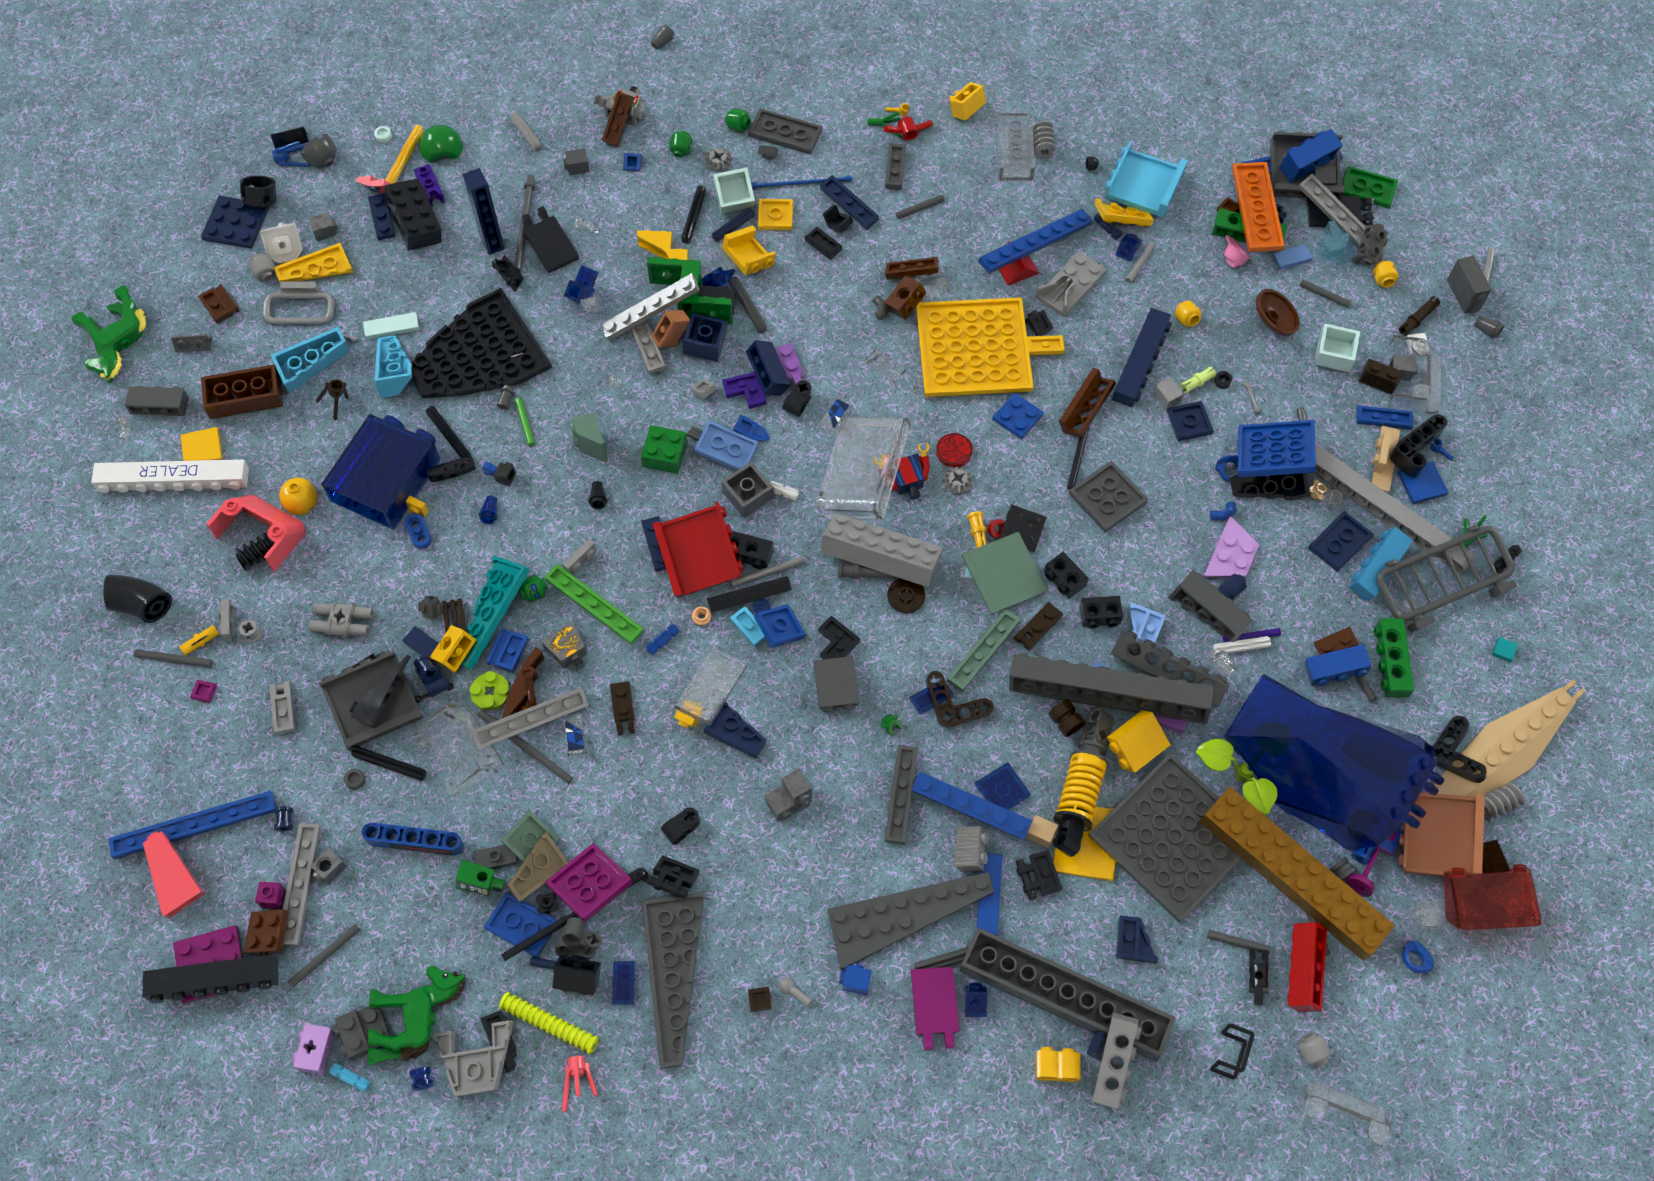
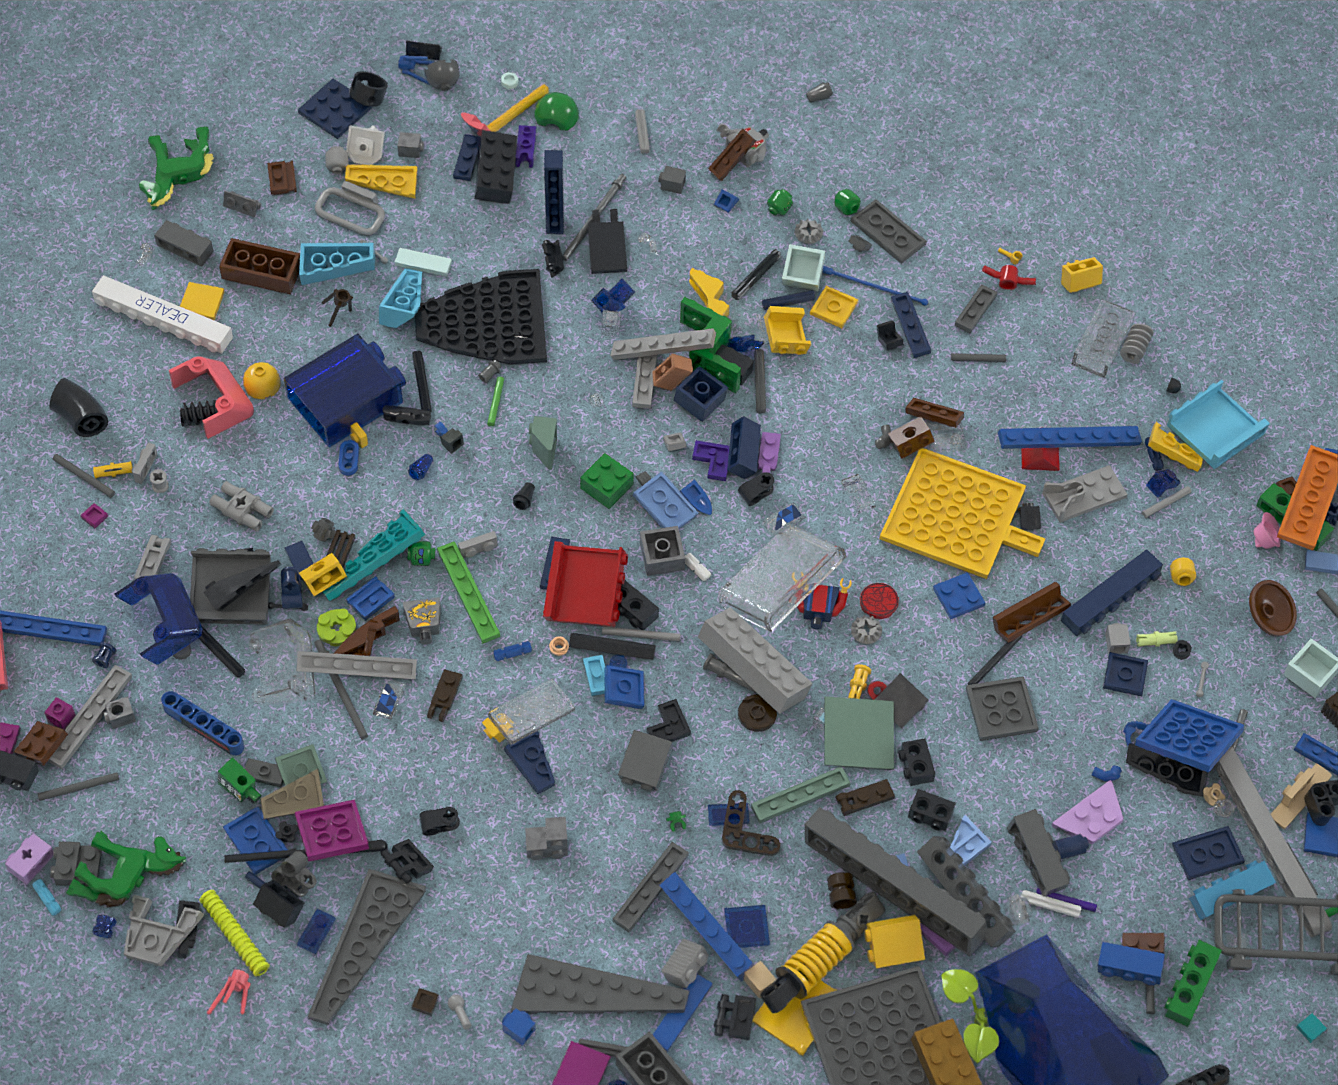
camera: 25 degrees right, 5 degrees down
(341, 752) = (179, 618): none -> clear blue windscreen
(823, 243) = (864, 353): black plate -> none
(881, 121) = (987, 260): green plant -> none

